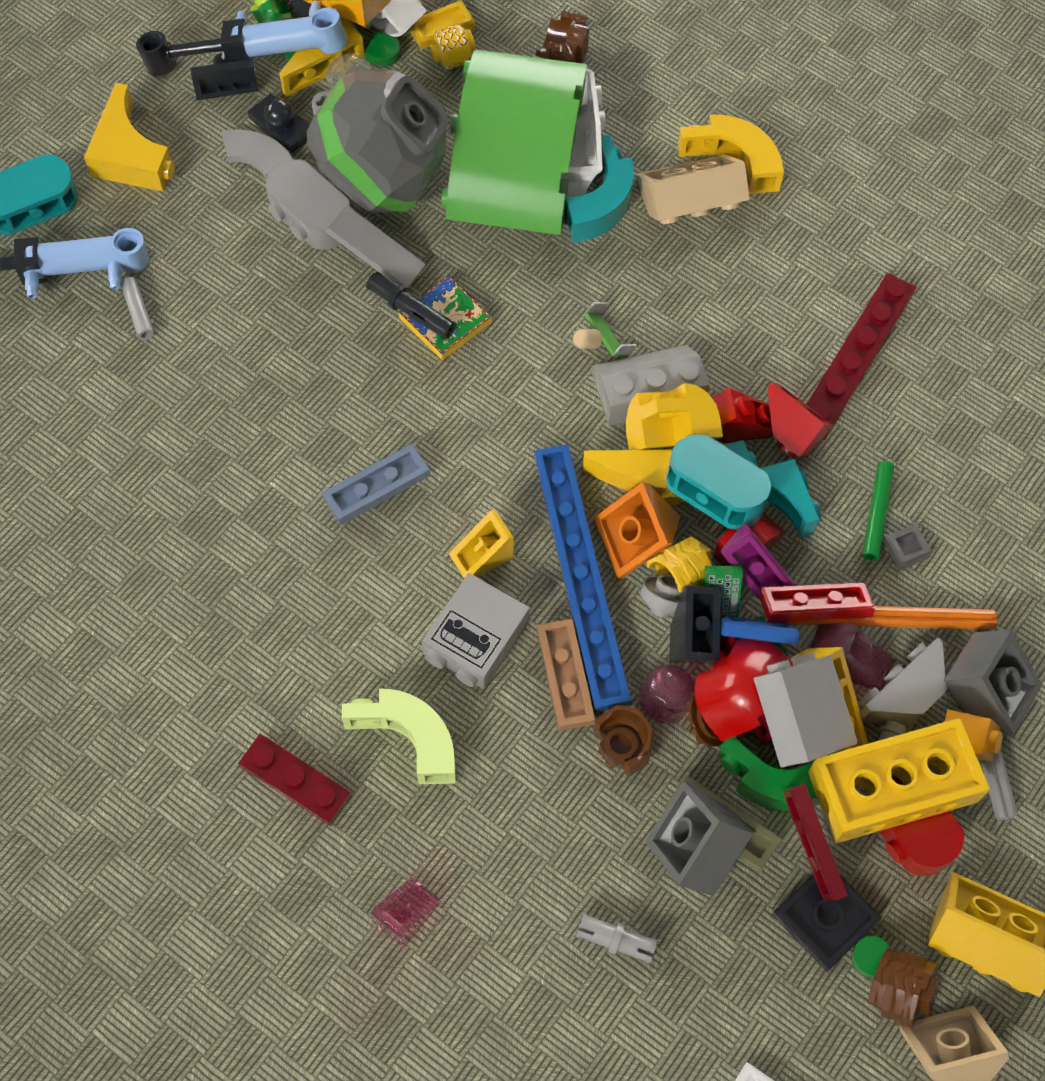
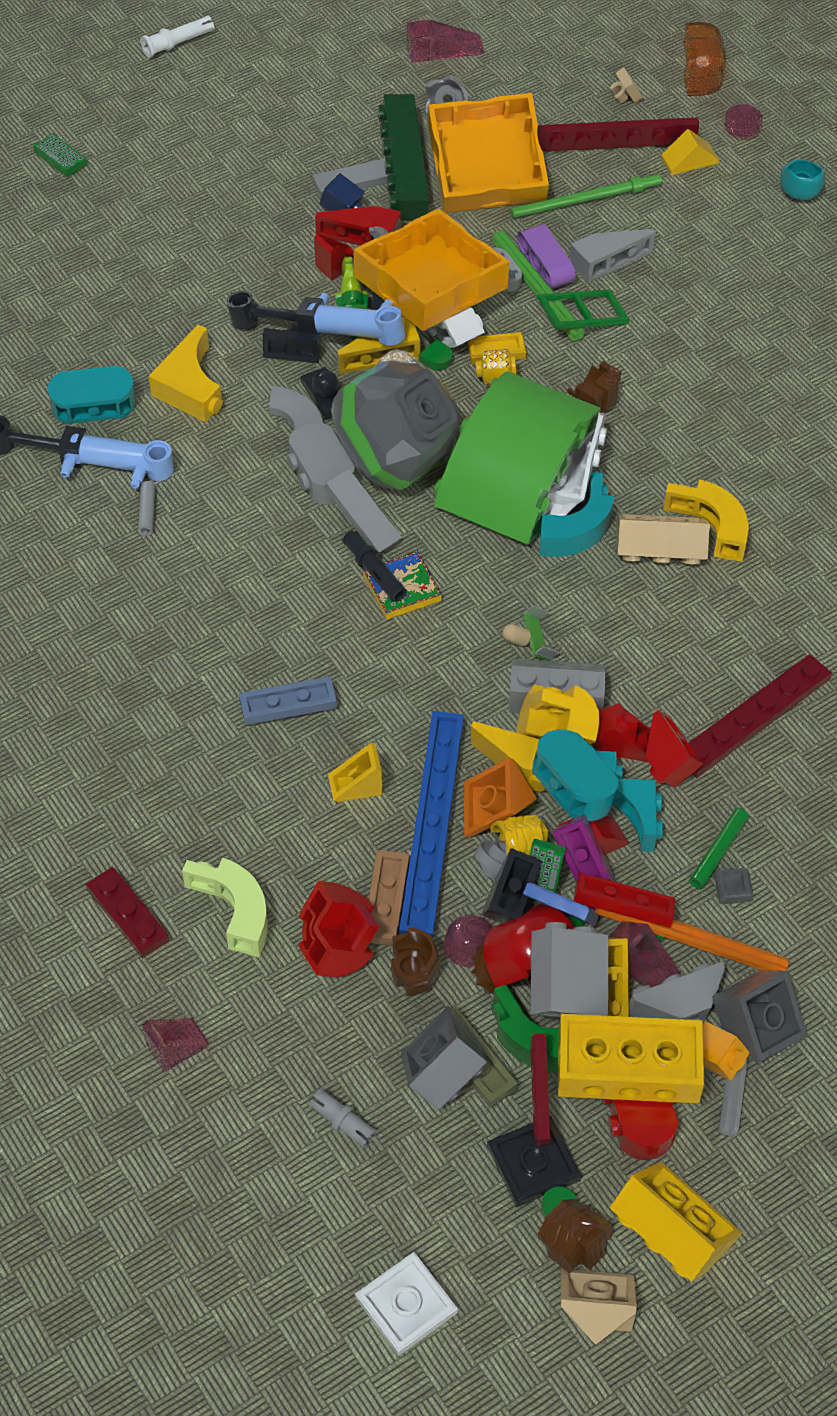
camera: 20 degrees right, 10 degrees down
(475, 631) = (323, 840): light grey brick -> none
(532, 731) = (336, 929): none -> red brick

